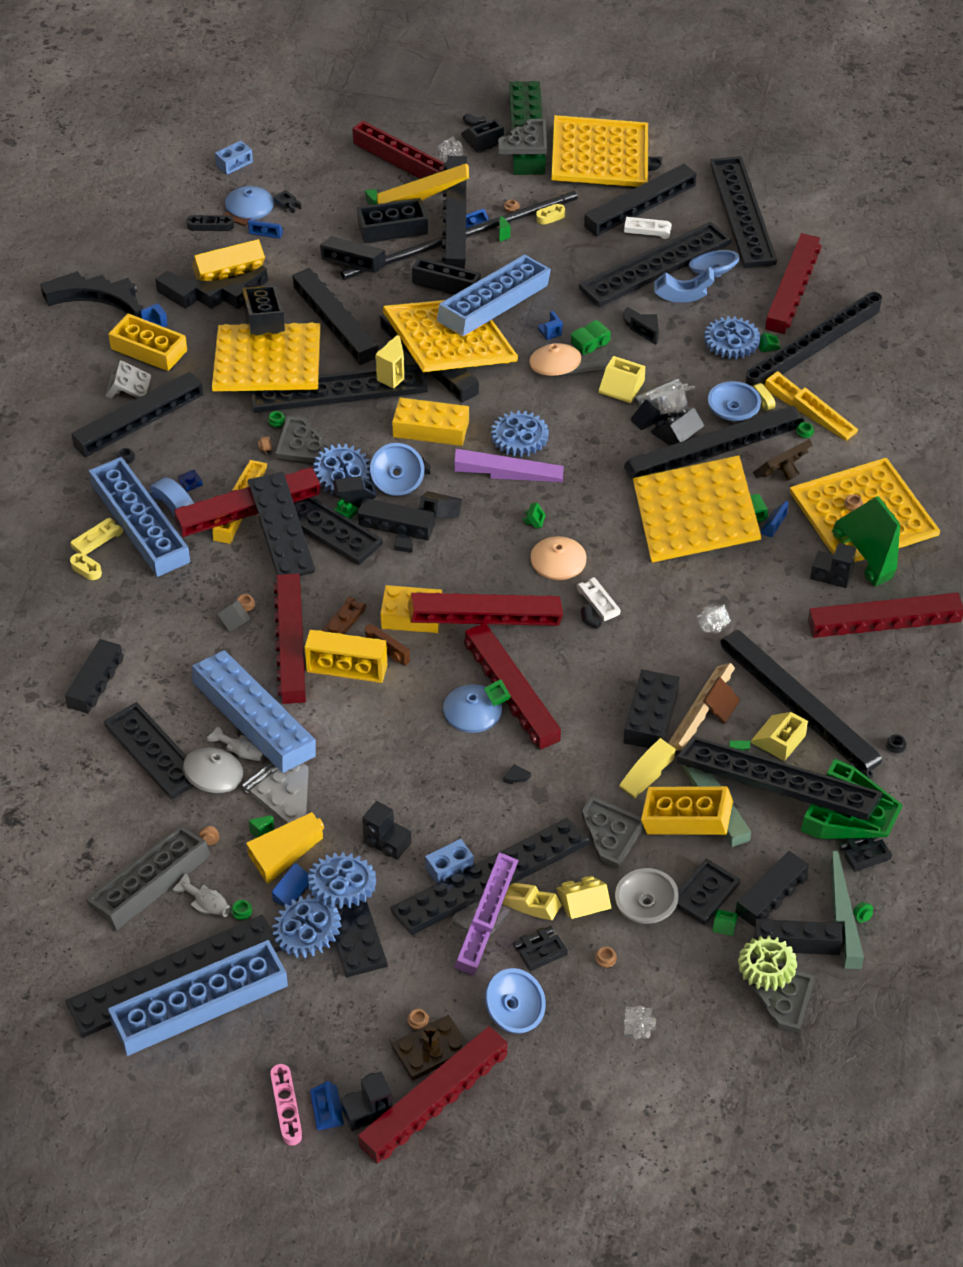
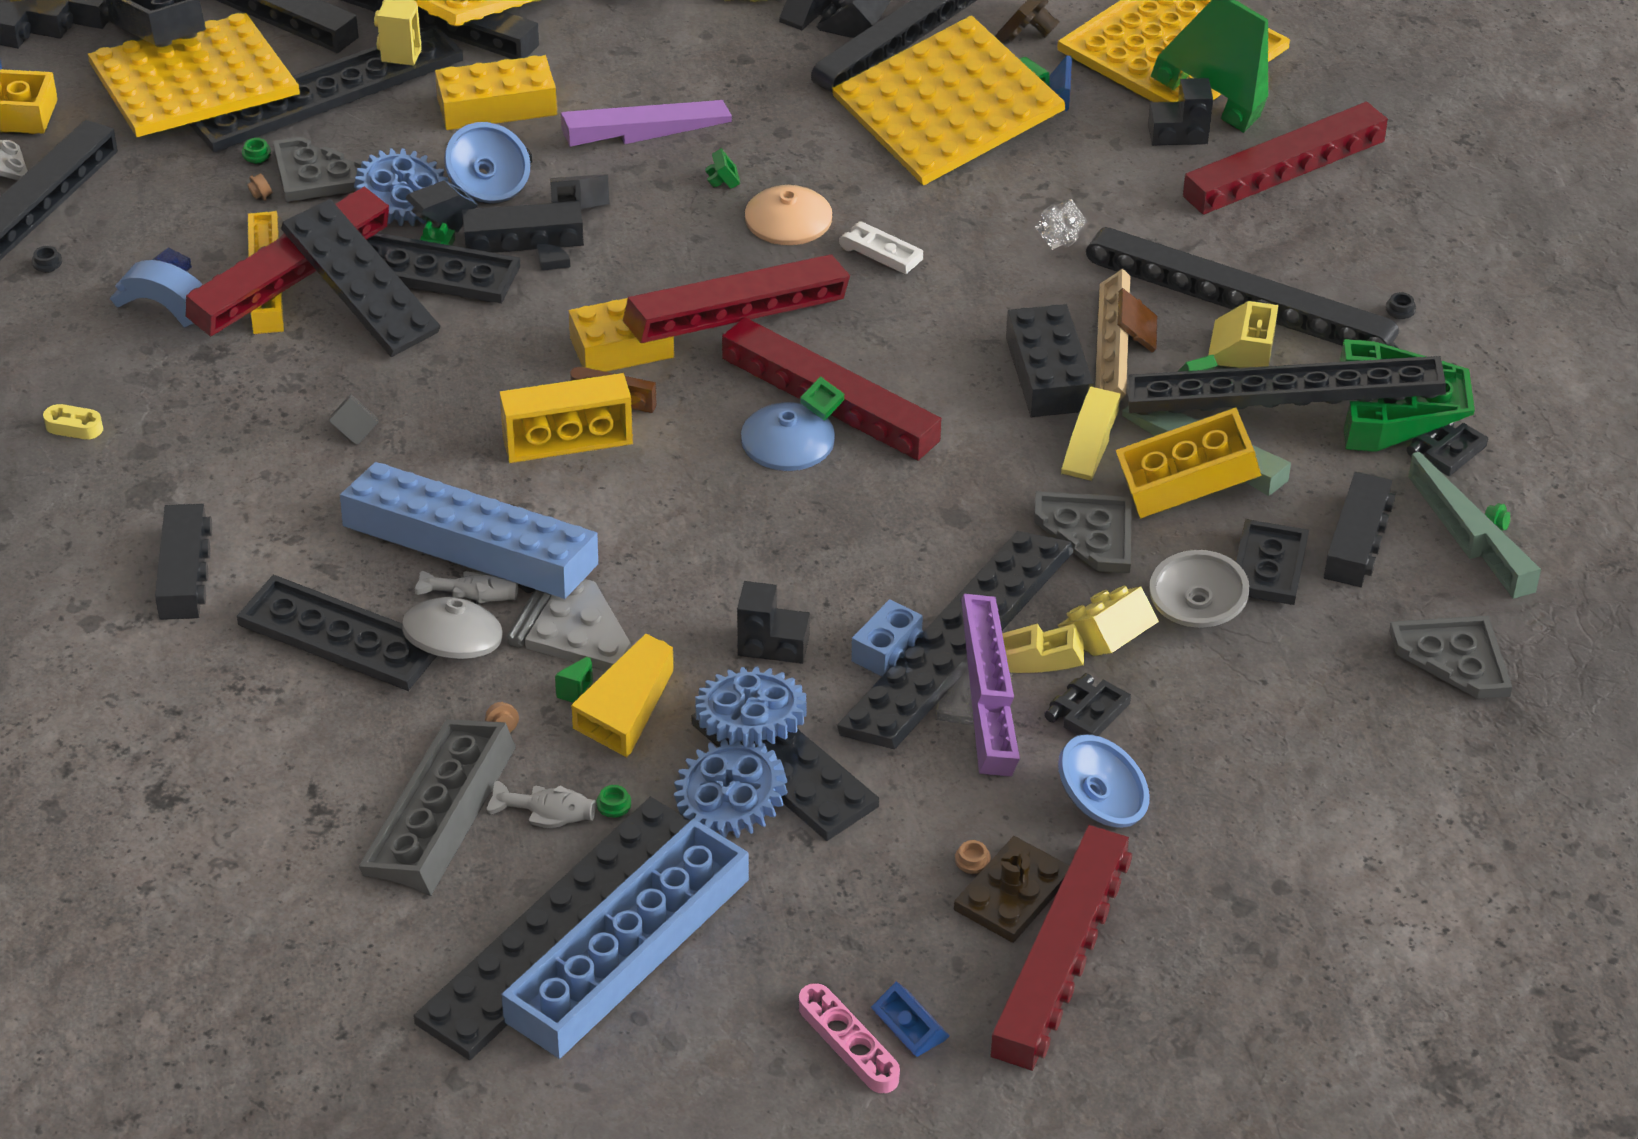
camera: 25 degrees left, 5 degrees down
(96, 536) = (66, 376): light yellow plate -> none
(139, 516) = (124, 328): medium blue brick -> none
(247, 602) = (362, 394): medium nougat plate -> none
(290, 639) = (460, 421): dark red brick -> none
(291, 886) = (670, 746): blue slope -> none
(345, 618) = (523, 373): reddish brown plate -> none
(369, 1103) = (980, 986): black brick -> none
(516, 774) = (908, 499): black tile -> none
(519, 433) = (635, 75): medium blue gear -> none
(587, 617) = (880, 275): black arm -> none
(606, 957) = (1187, 687): medium nougat plate -> none
(638, 1022) = (1291, 752): clear brick -> none
(725, 922) = (1320, 593): green slope -> none
(769, 956) = (1420, 617): yellowish green gear -> none
(802, 935) = (1433, 575): black brick -> none
(853, 501) = (1158, 34): medium nougat plate -> none

